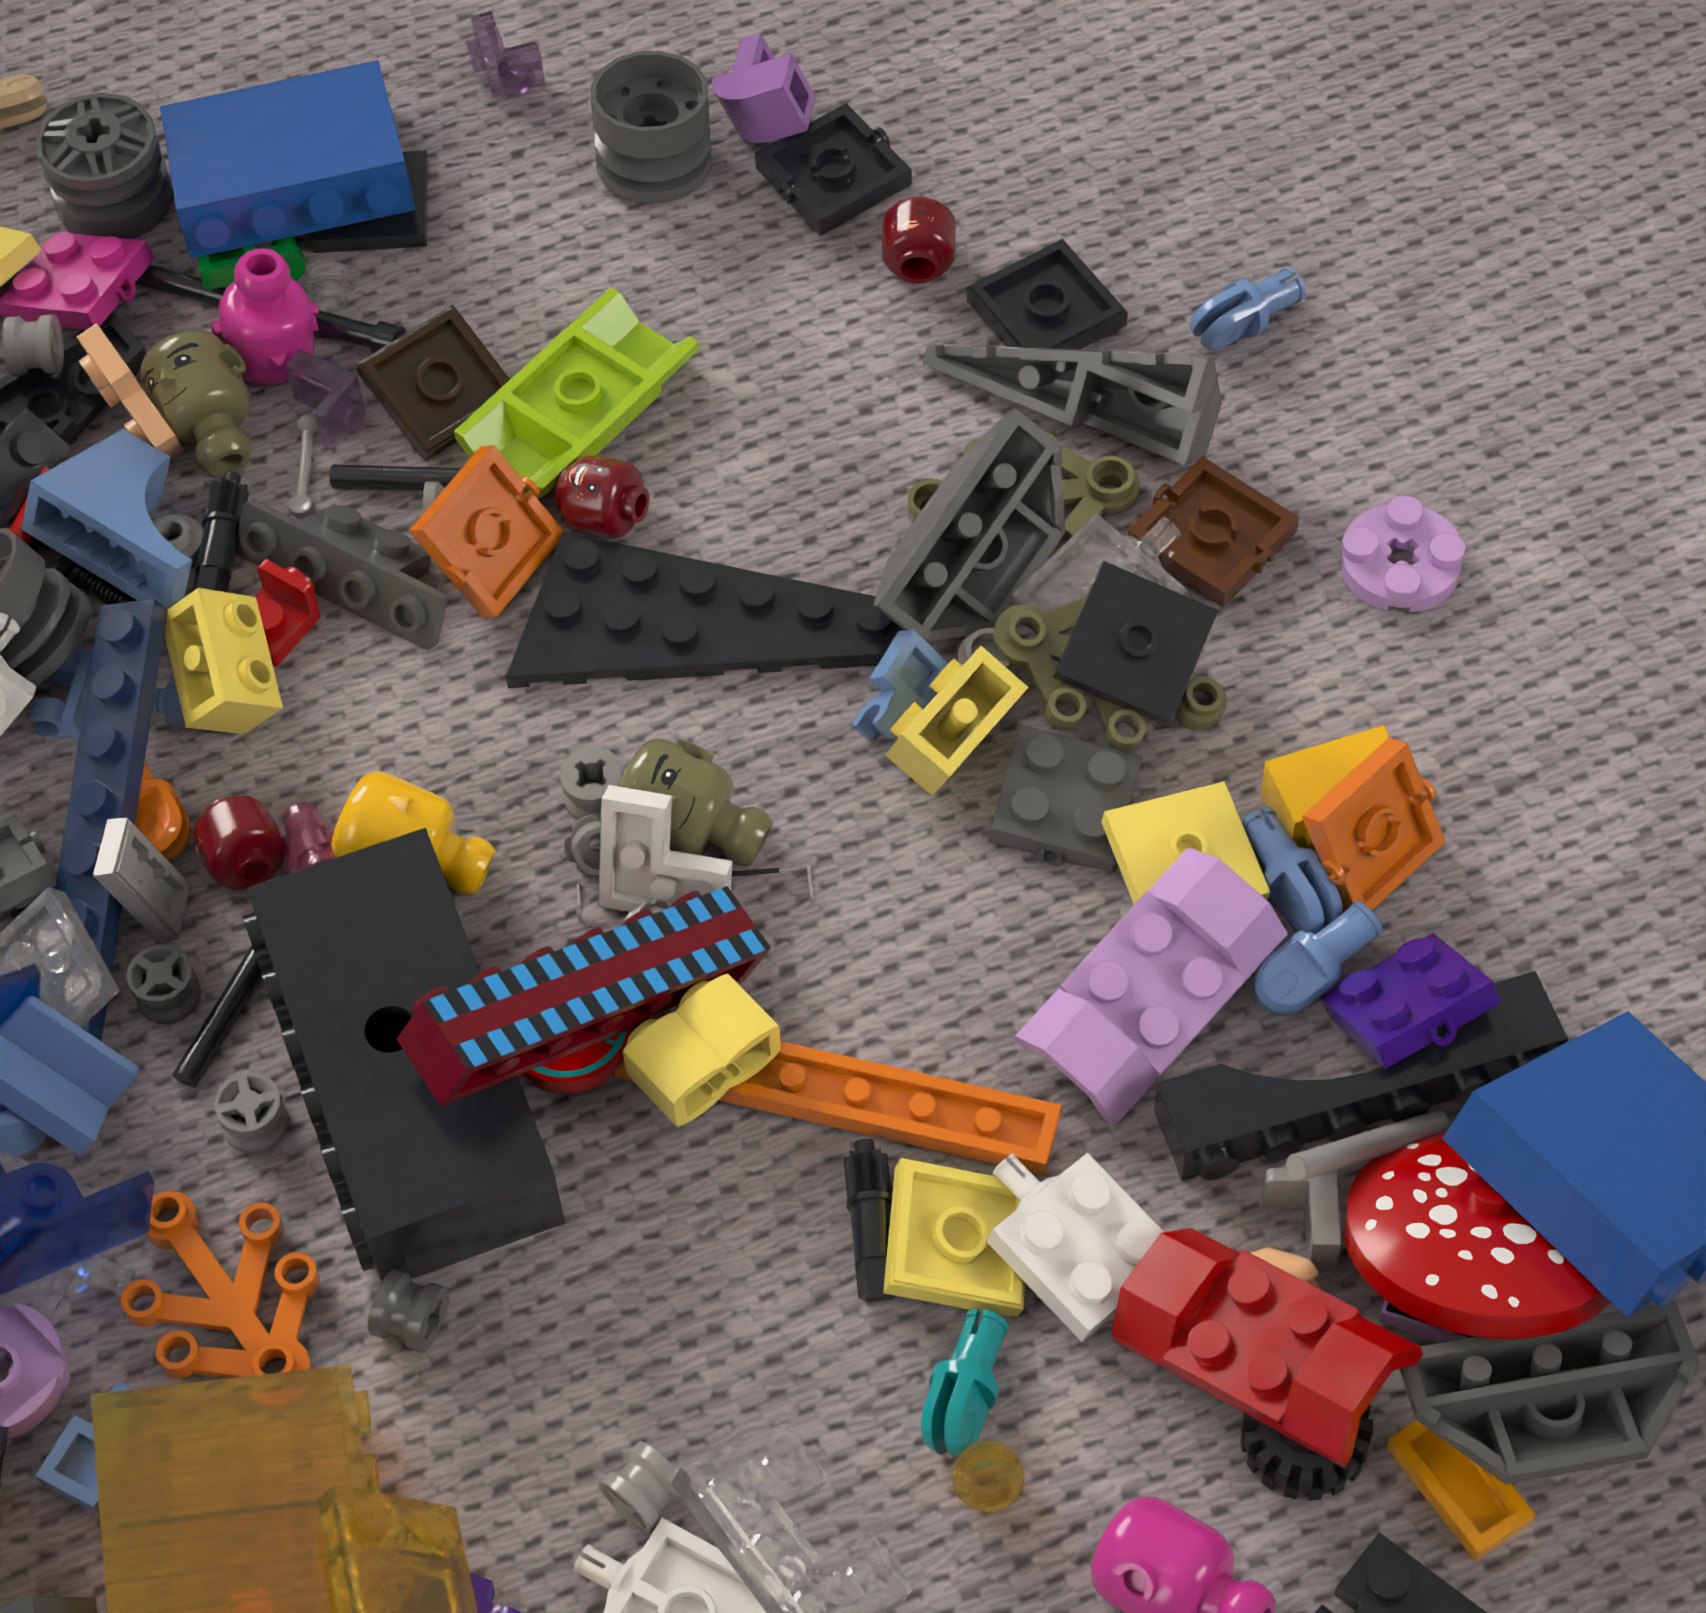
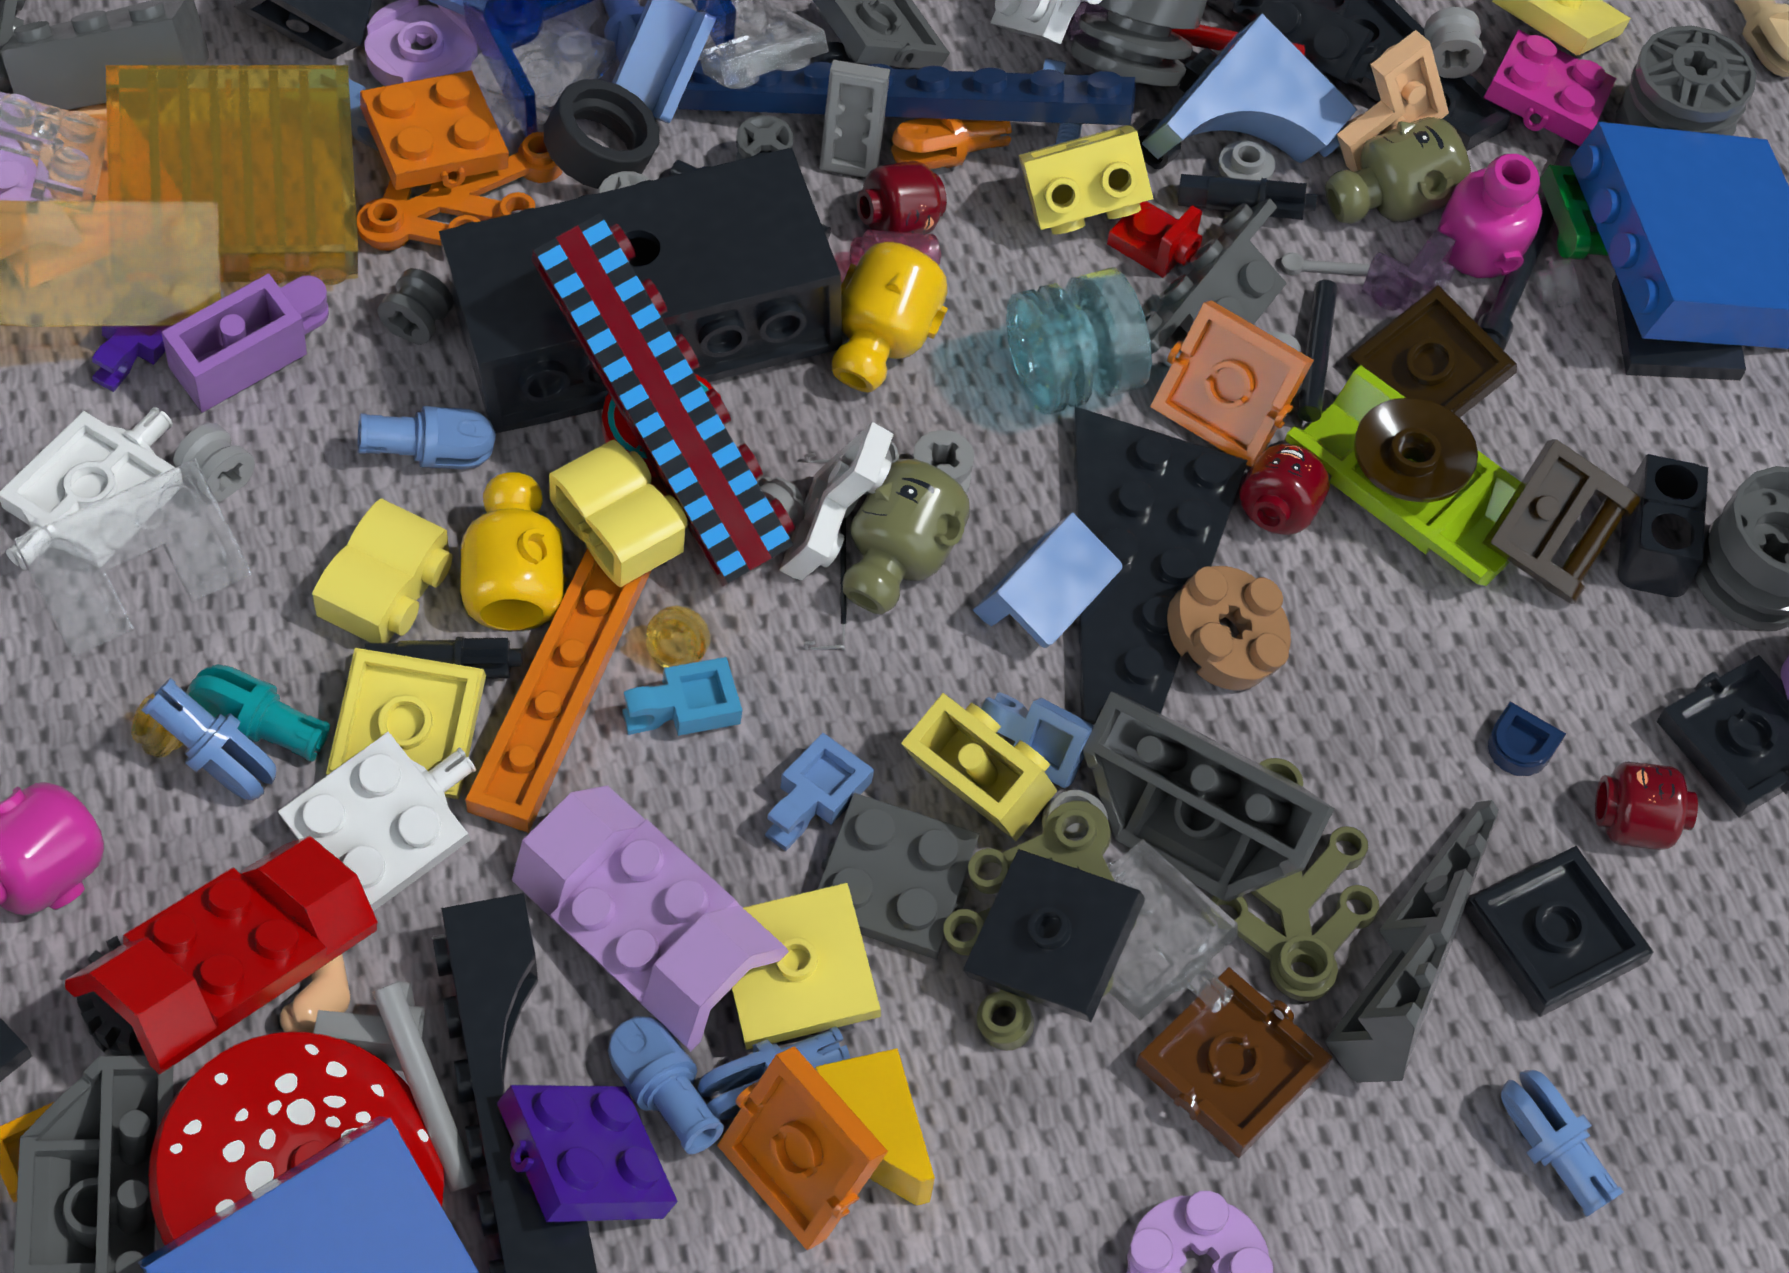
camera: 85 degrees right, 0 degrees up
(154, 1109) = (611, 107): none -> black tyre
(157, 1314) = (434, 129): none -> orange plate
(446, 656) = (1079, 340): none -> clear light blue wheel
(481, 1472) = (244, 337): none -> medium lavender brick
(574, 374) = (1420, 432): none -> dark brown dish
(590, 230) = (1657, 567): none -> black piece
(590, 1270) = (434, 437): none -> medium blue arm
(630, 279) = (1546, 510): none -> dark brown plate
(725, 687) = (1052, 582): none -> medium blue panel
(754, 1158) = (512, 558): none -> yellow piece
(765, 536) = (1252, 607): none -> medium nougat plate
(776, 1287) = (382, 573): none -> light yellow brick
(824, 1002) = (677, 636): none -> clear yellow plate
(853, 330) = (1523, 742): none -> dark blue tile
(896, 981) = (692, 695): none -> dark azure plate
(983, 860) = (817, 784): none -> medium blue plate
(1015, 1410) = (212, 742): none -> medium blue arm

